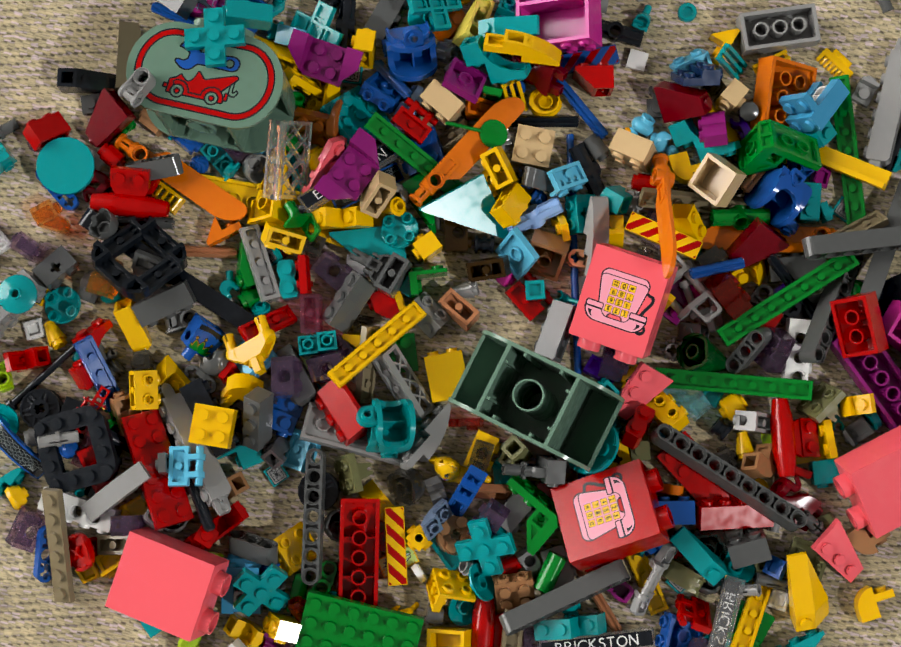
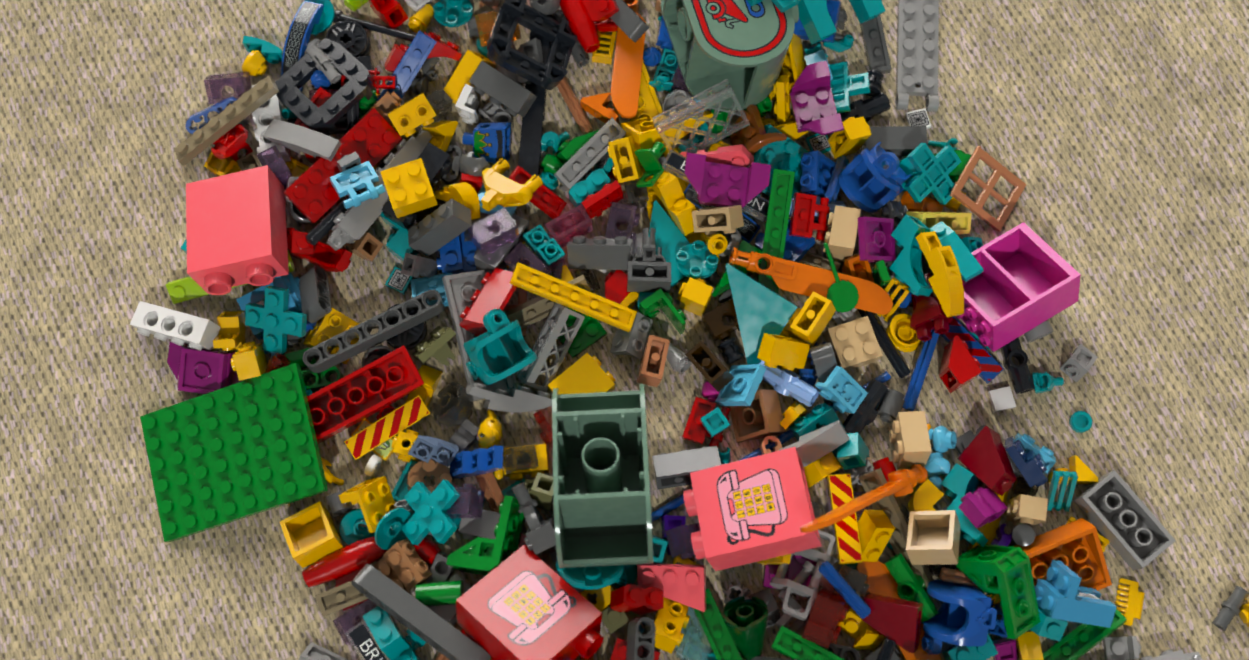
camera: 60 degrees right, 10 degrees down
(157, 338) = (467, 105): none -> white bracket

